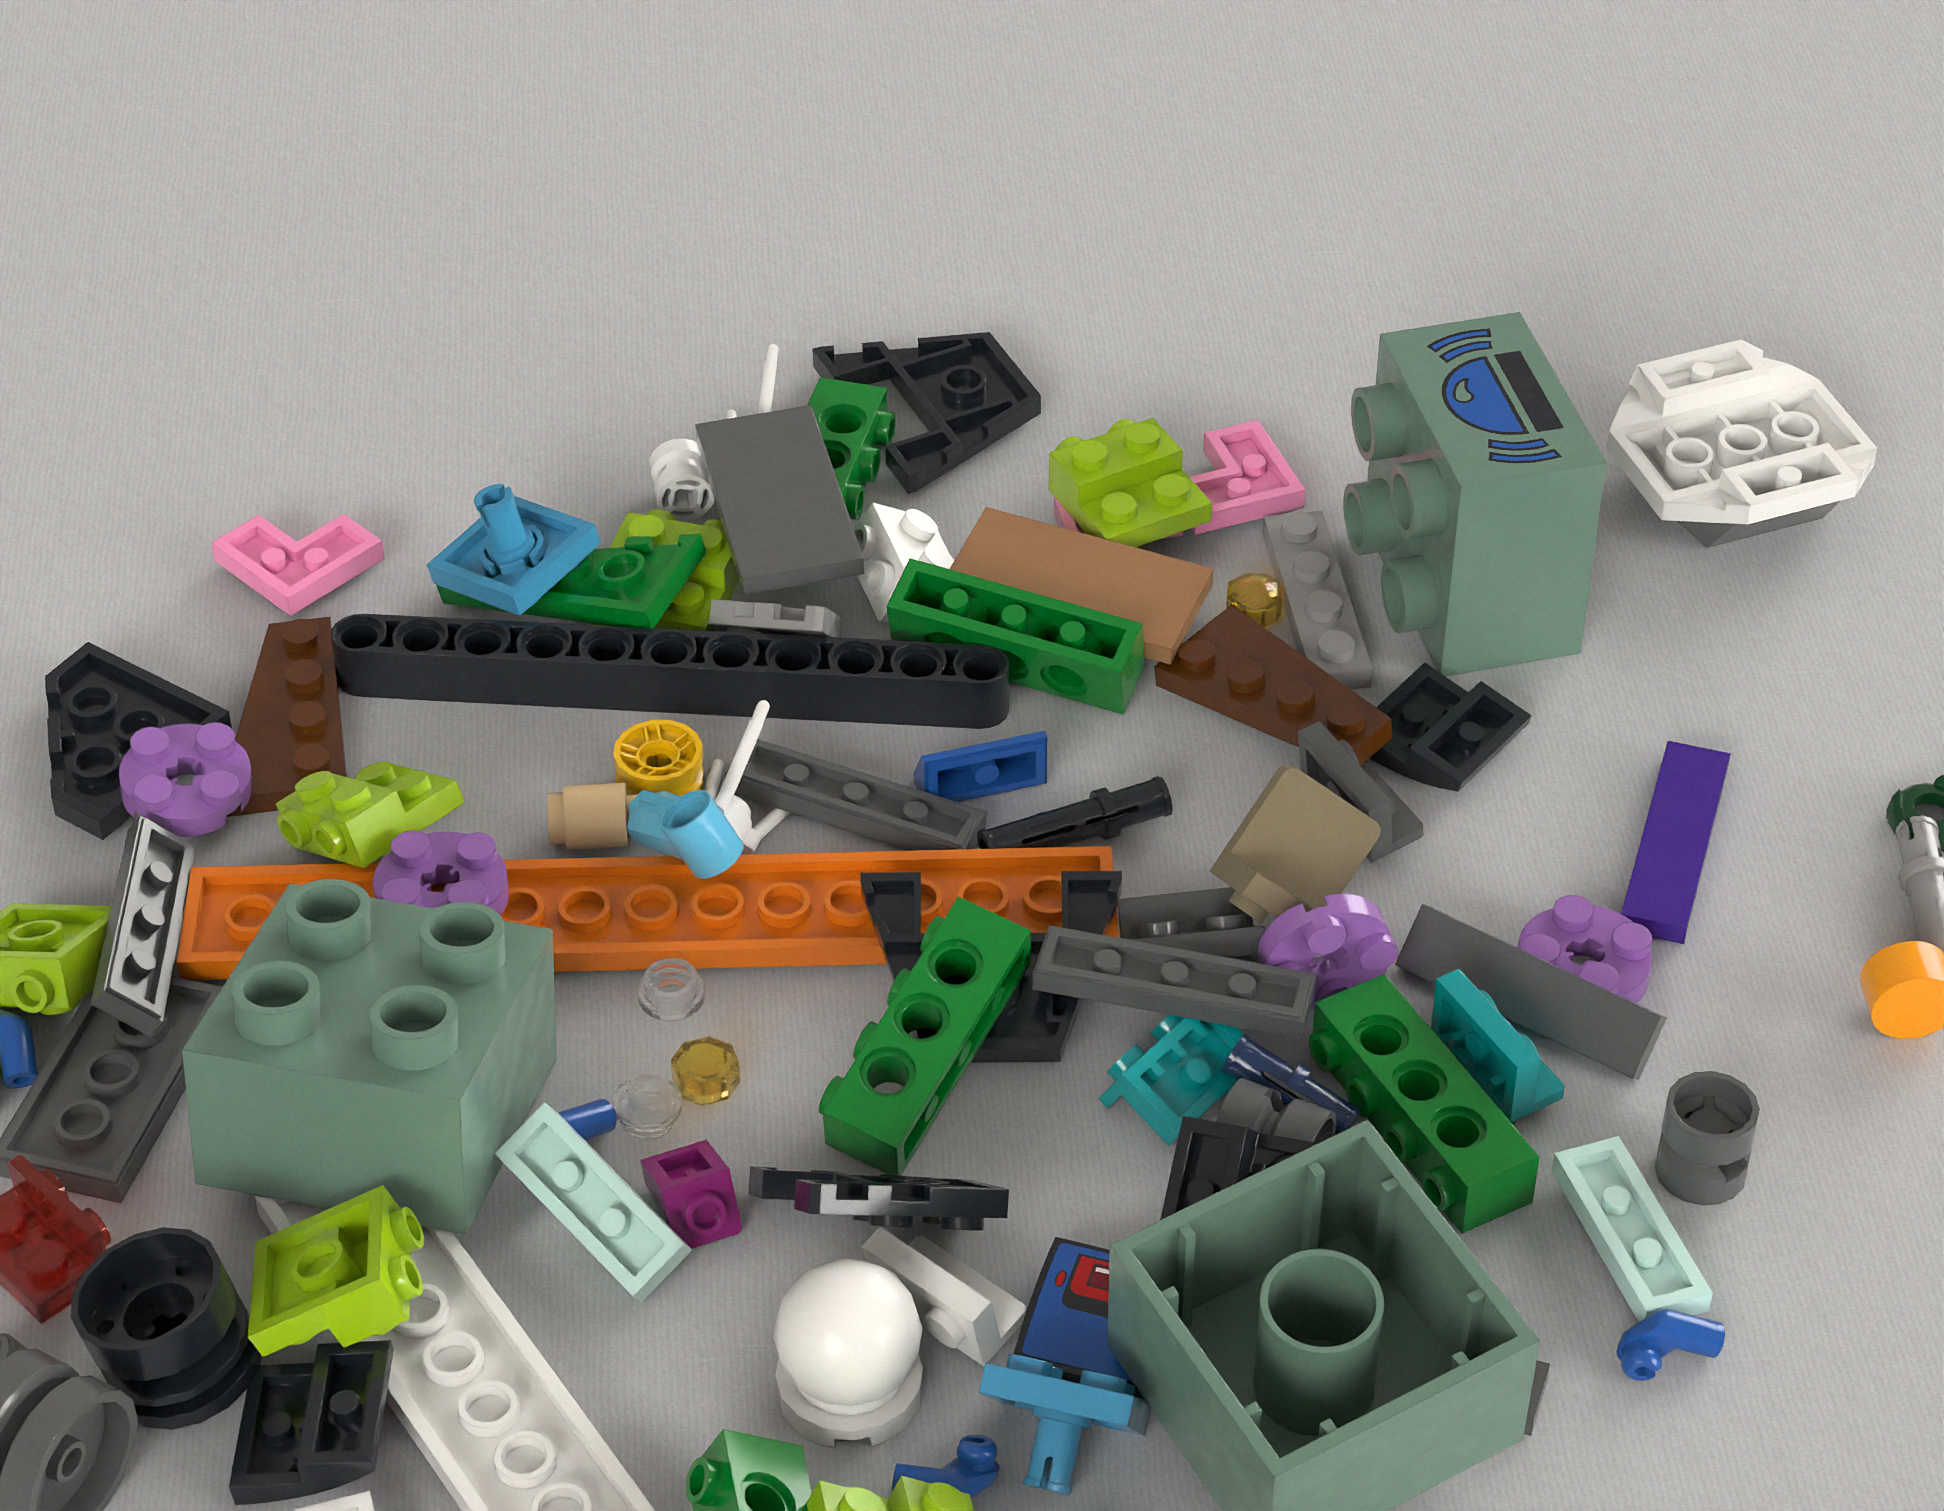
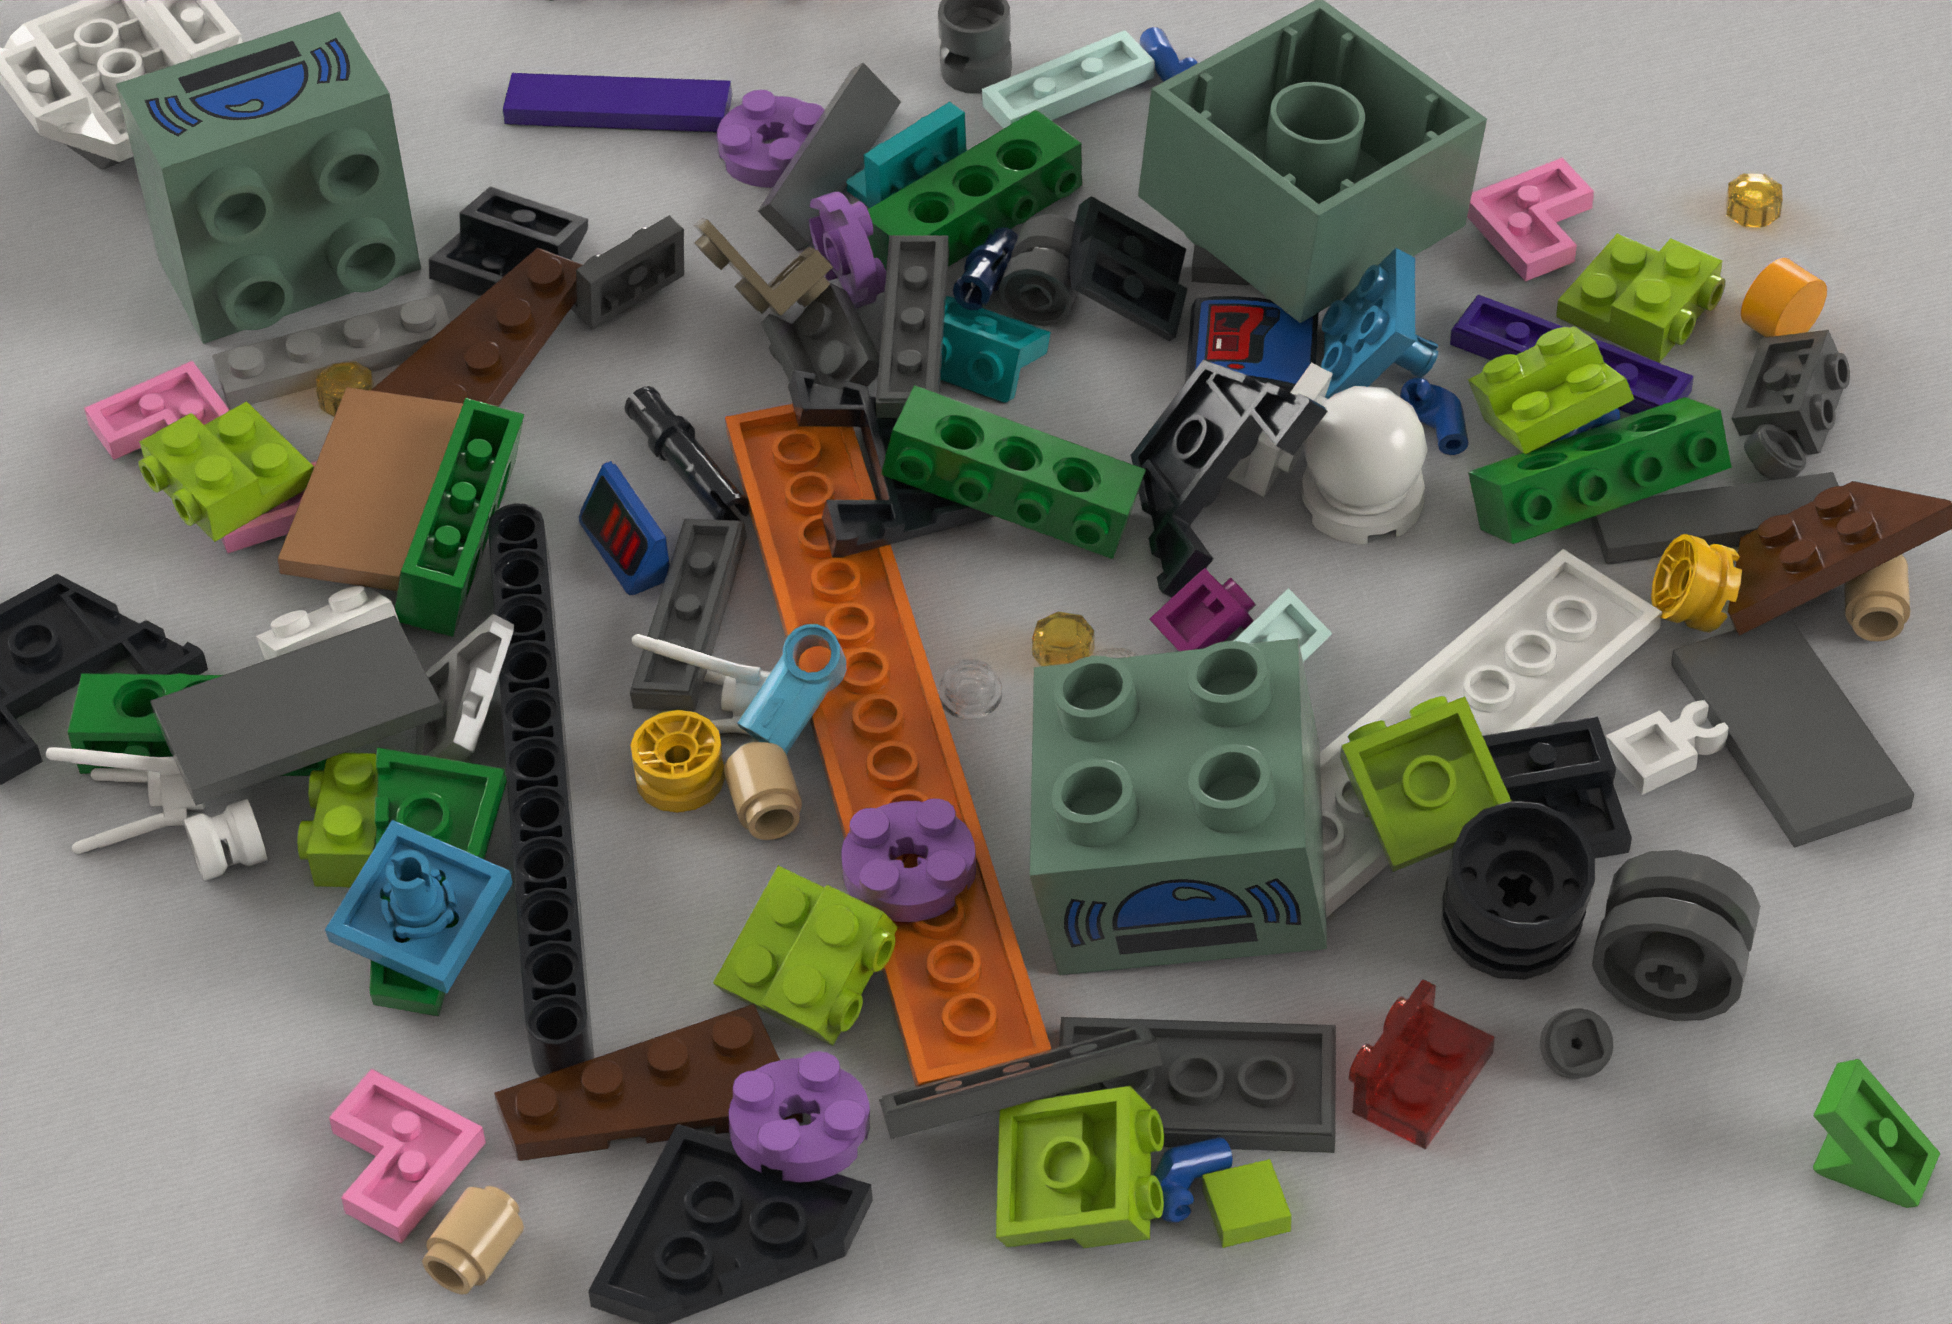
camera: 100 degrees left, 5 degrees up
(181, 587) = (473, 1239): none -> tan brick

